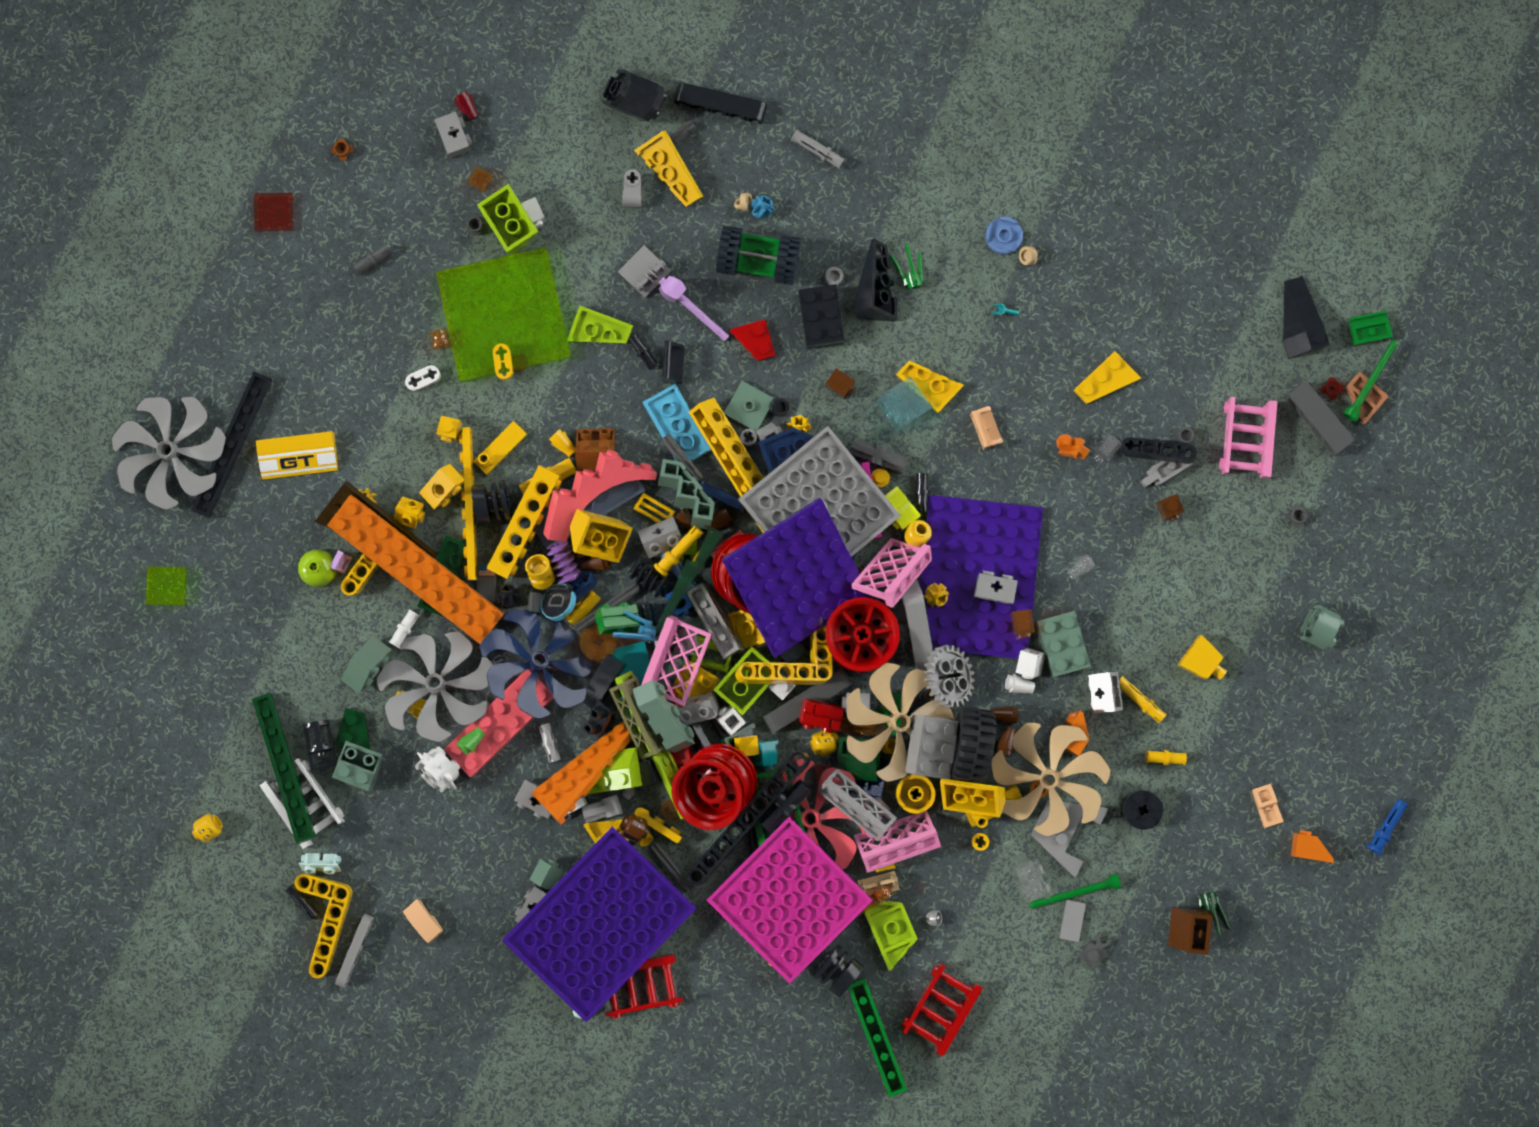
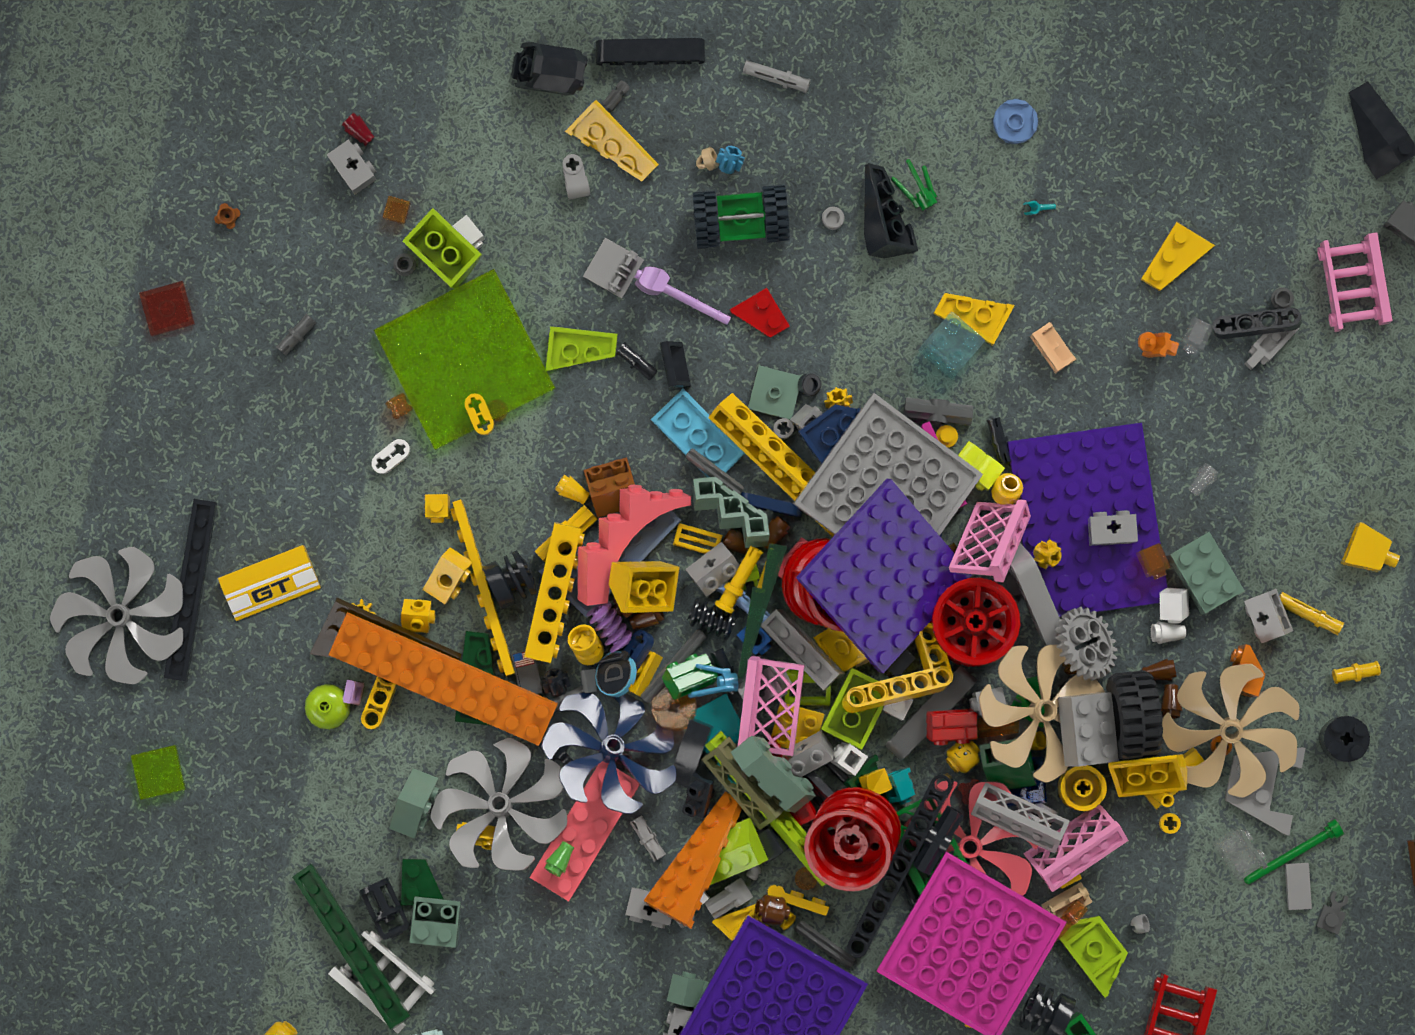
camera: 15 degrees left, 0 degrees up
(404, 628) = (445, 750): white pin -> none
(438, 769) = (529, 901): white brick -> none
(500, 448) = (501, 514): yellow piece -> none
(821, 316) = (831, 268): black brick -> none
(840, 384) = (873, 340): reddish brown brick -> none
(1028, 255) = (1049, 137): tan tile -> none
(1170, 508) = (1287, 386): reddish brown brick -> none

